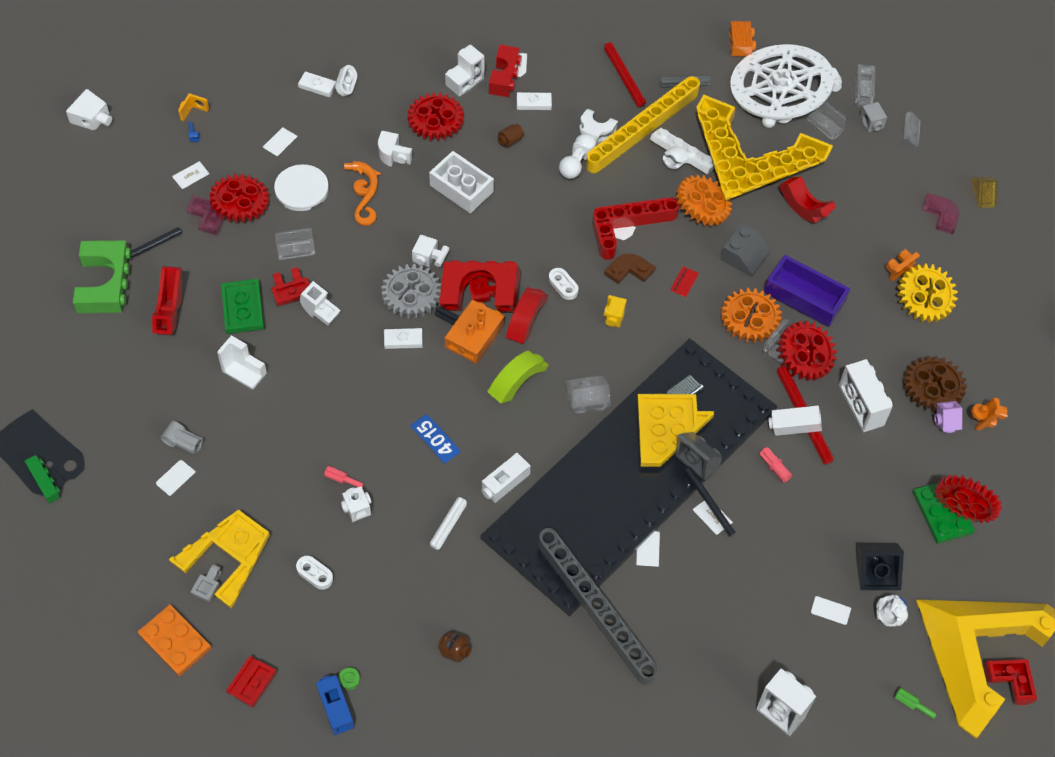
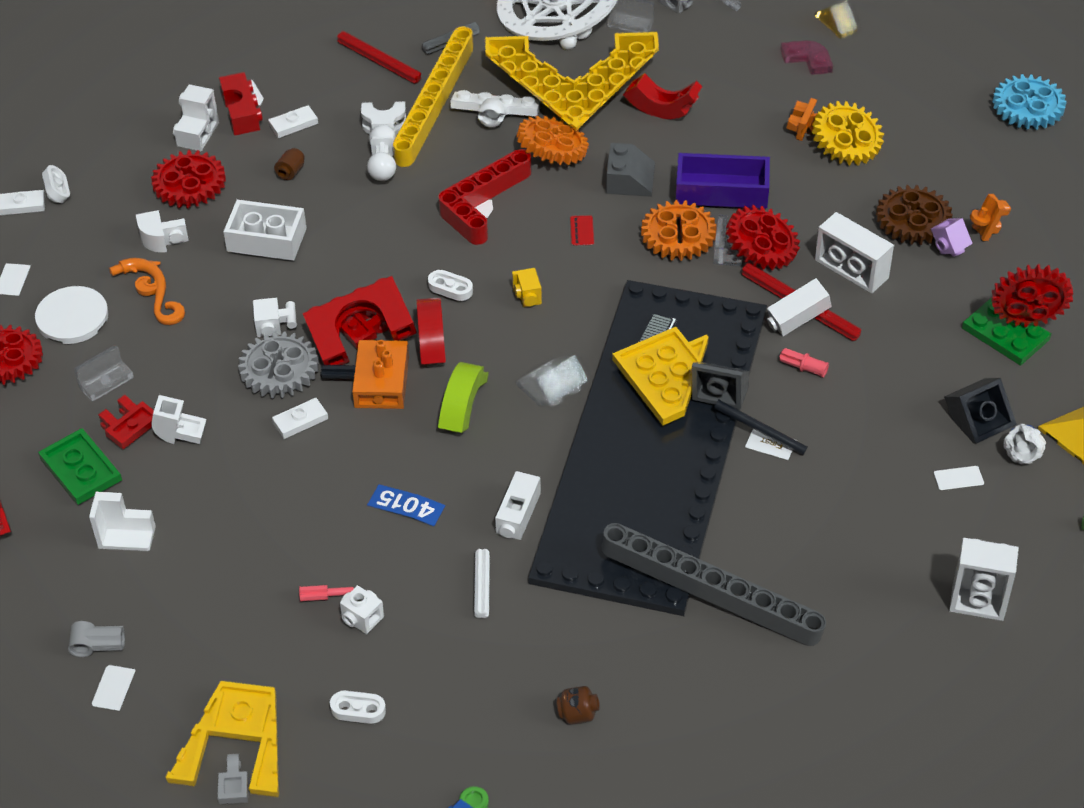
camera: 25 degrees left, 10 degrees down
(629, 264) = (512, 236): reddish brown plate -> none
(649, 551) = (726, 509): white sticker -> none

